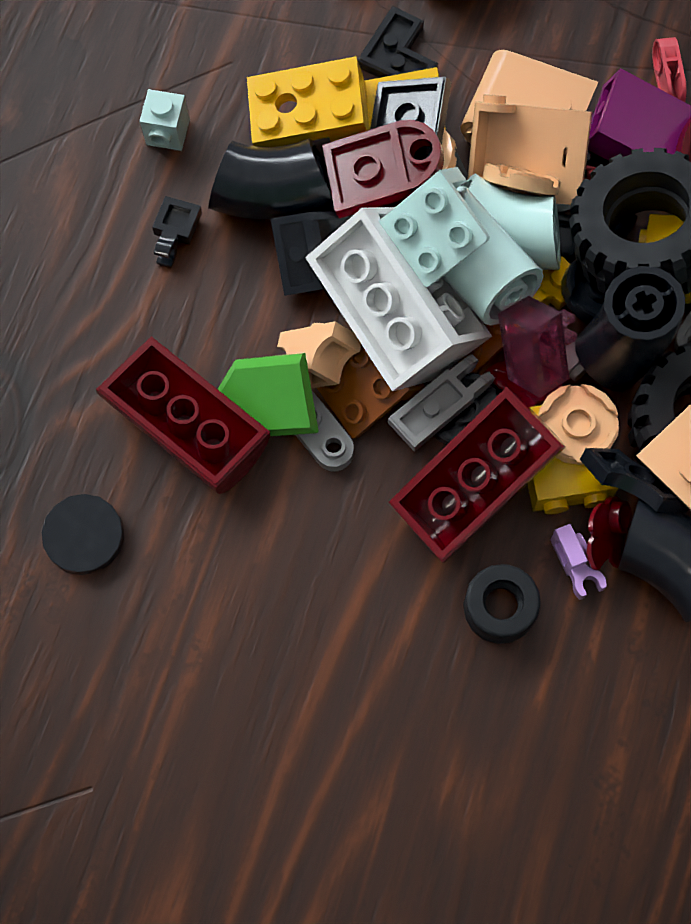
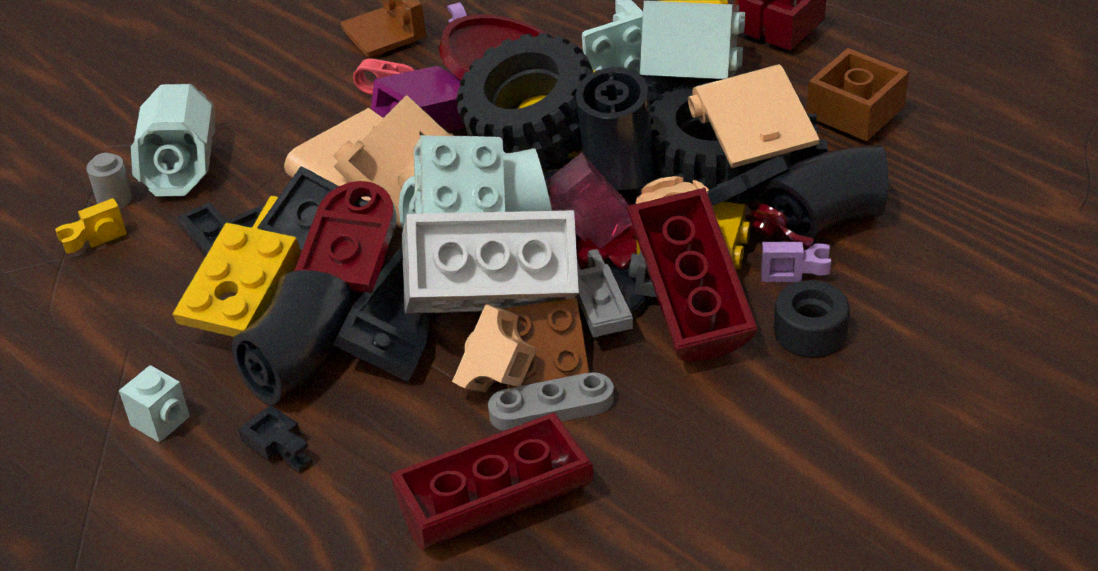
camera: 65 degrees left, 30 degrees down
(274, 392) = (515, 390): bright green tile -> none

